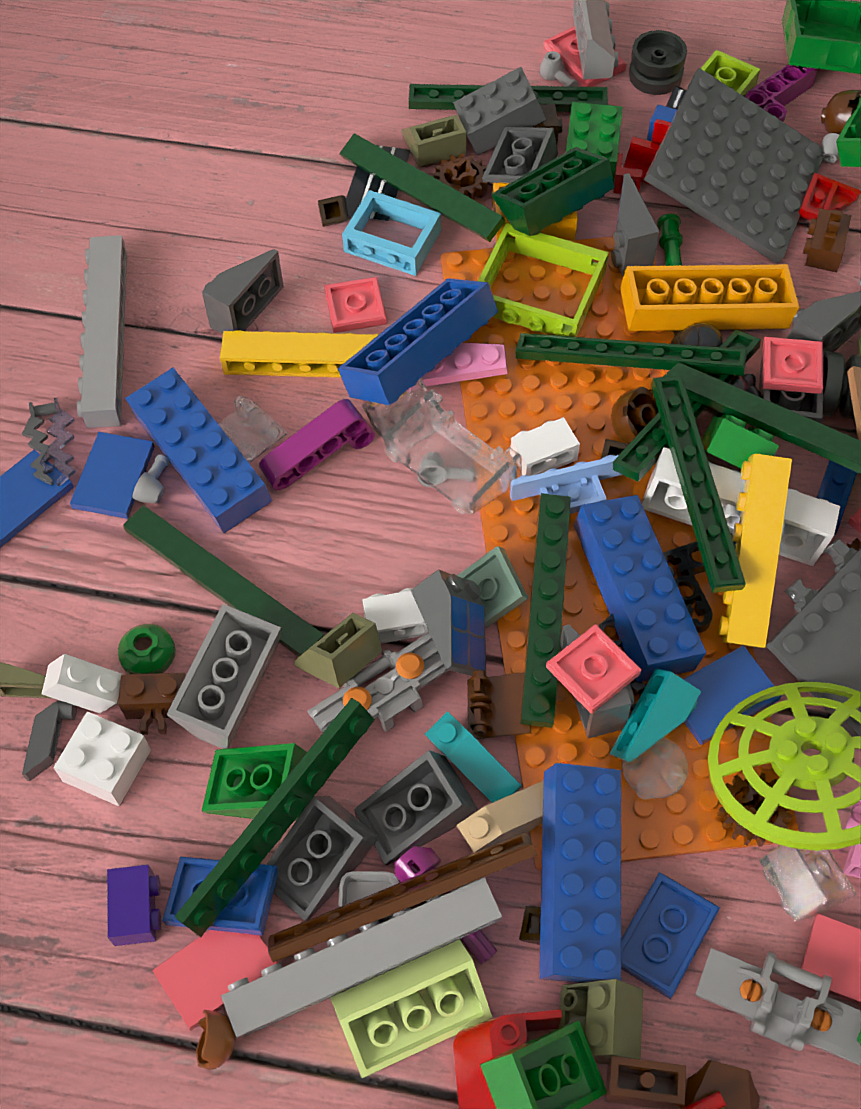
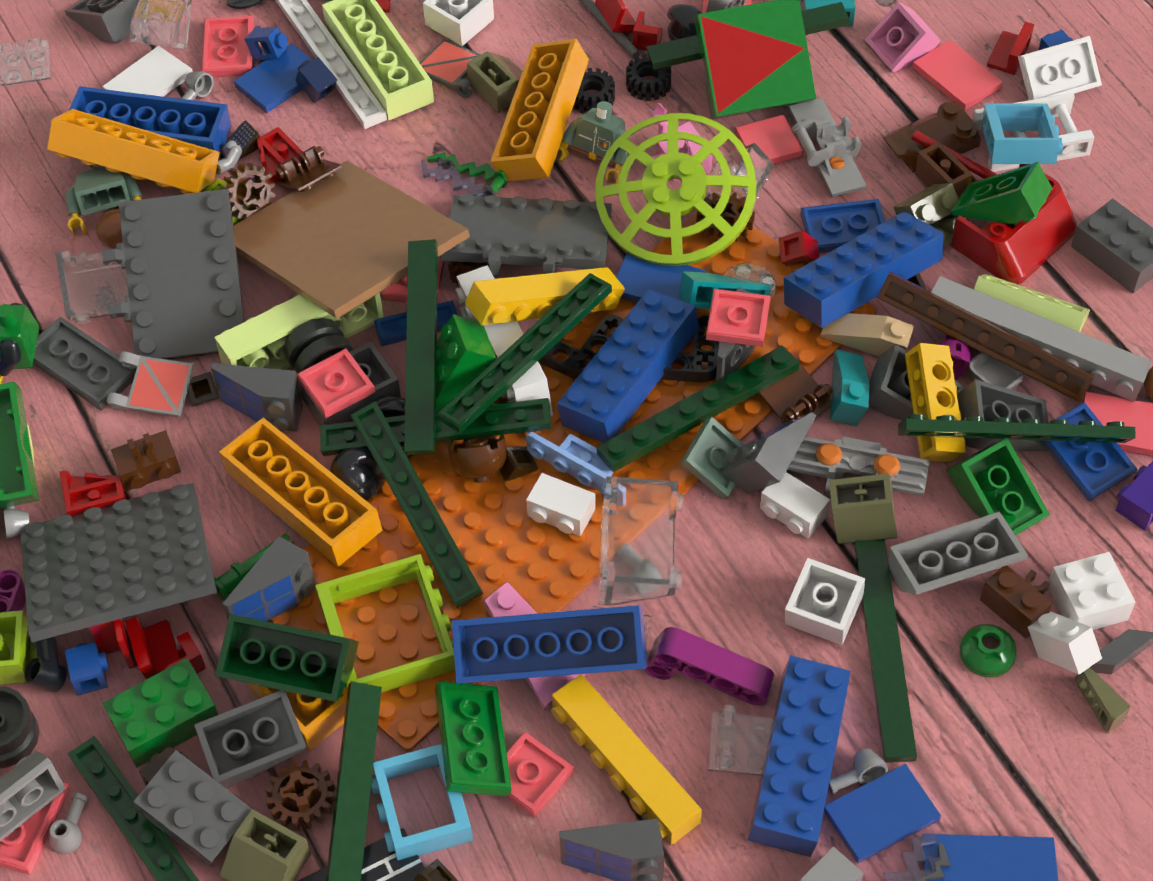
camera: 130 degrees left, 5 degrees down
(289, 556) = (824, 601): none -> white brick
(396, 269) = (472, 739): none -> green tile
(422, 812) = (934, 395): none -> yellow brick
(659, 847) = (797, 248): none -> red panel

